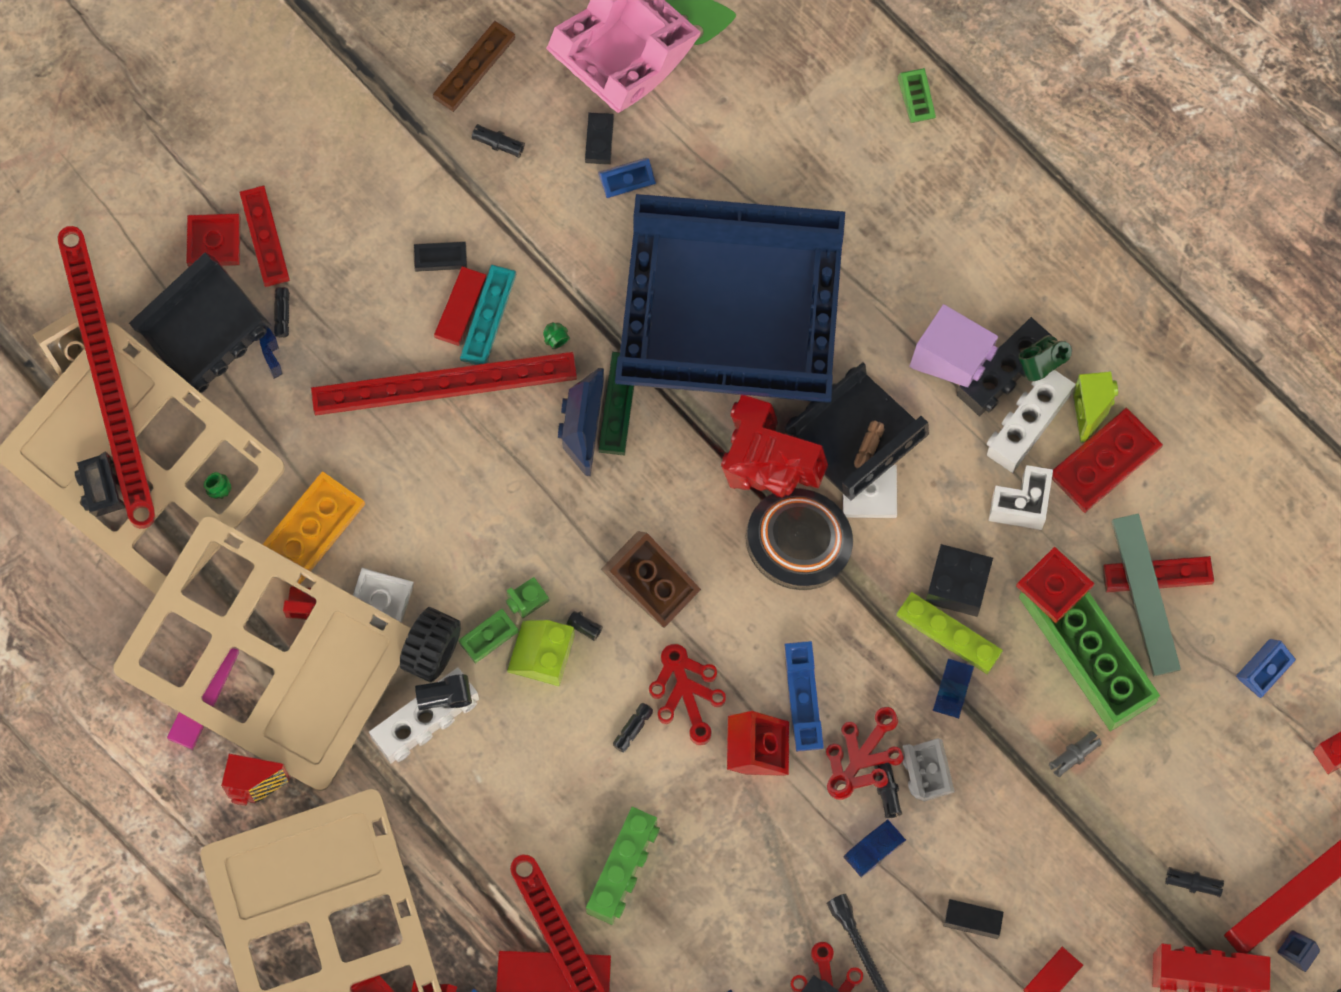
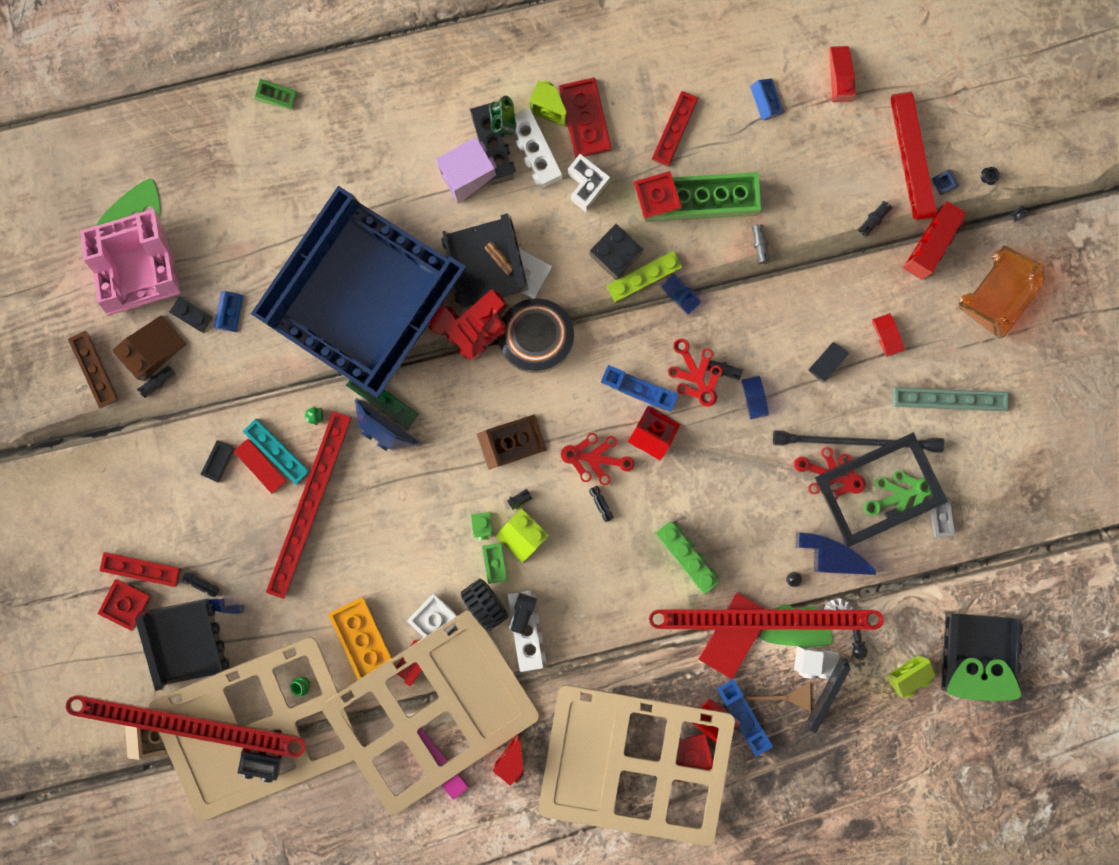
camera: 65 degrees left, 15 degrees up
(533, 112) = (149, 348): none -> reddish brown slope
(928, 770) = (724, 338): light grey bracket -> none
(1146, 595) = (685, 143): sand green tile -> none

